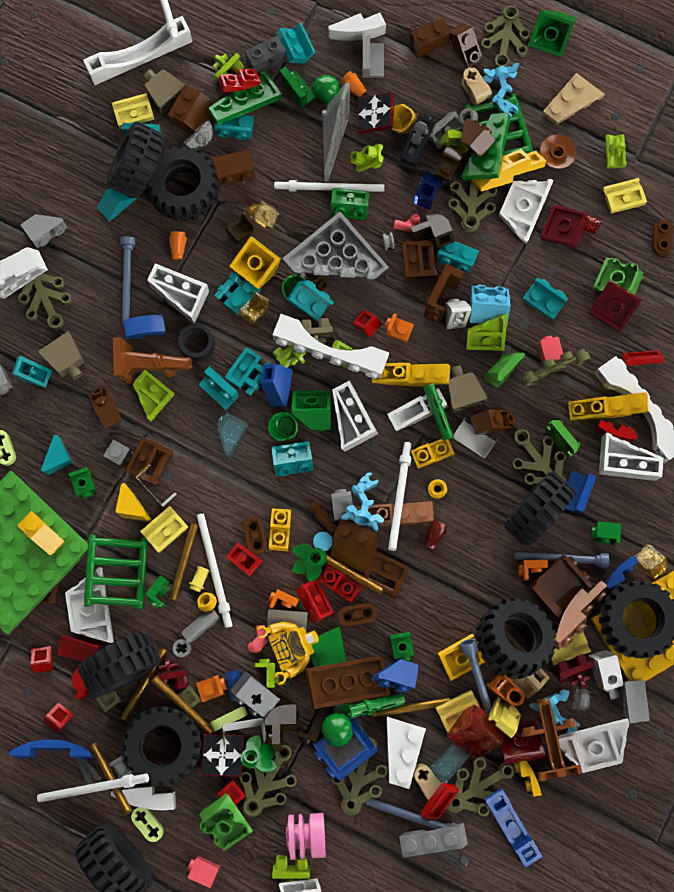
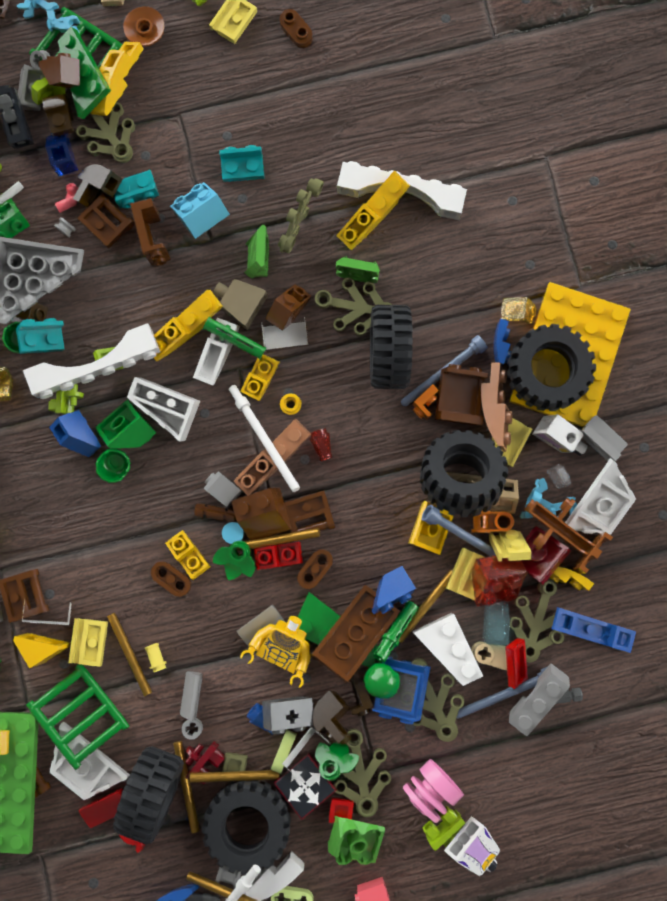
camera: 35 degrees left, 5 degrees up
(41, 659) = (80, 844): red slope -> none
(57, 718) = (138, 880): red slope -> none
(109, 701) = (169, 827): olive tile -> none
(158, 589) = (126, 696): green bracket -> none
(203, 599) = (178, 671): yellow plate -> none
(211, 688) = (246, 739): orange bracket -> none
(218, 389) = (28, 481): teal bracket -> none
(223, 606) = (197, 662): white bar -> none
(230, 431) = (73, 510): clear light blue slope -> none
(243, 368) = (35, 445): teal plate -> none
(244, 559) = (178, 607): red slope -> none
(258, 643) = (253, 668): coral arm -> none
(271, 671) = (283, 679): lime bracket -> none
(287, 600) = (245, 609): orange bracket -> none
(292, 458) = (145, 485): teal bracket -> none
(314, 601) = (269, 588): red slope -> none
(322, 332) = (75, 358): dark tan hips -> none
(362, 516) = (248, 482): medium azure piece -> none
(367, 323) = (108, 313): red slope -> none
(398, 328) = (139, 295): orange bracket -> none
(402, 638) = (366, 562): green brick -> none
(456, 313) = (177, 240): white slope -> none
(477, 88) = (23, 27): tan piece -> none
(488, 335) = (220, 235): lime wing -> none
(524, 206) = (155, 98): white wing -> none
(550, 348) = (281, 202): coral brick -> none
(564, 226) = (204, 86): dark red tile -> none
(583, 487) = (409, 296): blue panel -> none
(583, 668) = (537, 447): dark red hips -> none
(592, 224) = (222, 67): clear red cone -> none
(606, 532) = (461, 319): green brick -> none
(615, 305) = (305, 119): dark red tile -> none
(623, 432) = (404, 224): red slope -> none
(624, 275) = (290, 95): bright green slope -> none
(628, 461) = (428, 242): white wedge -> none
(643, 357) = (366, 144): red tile -> none

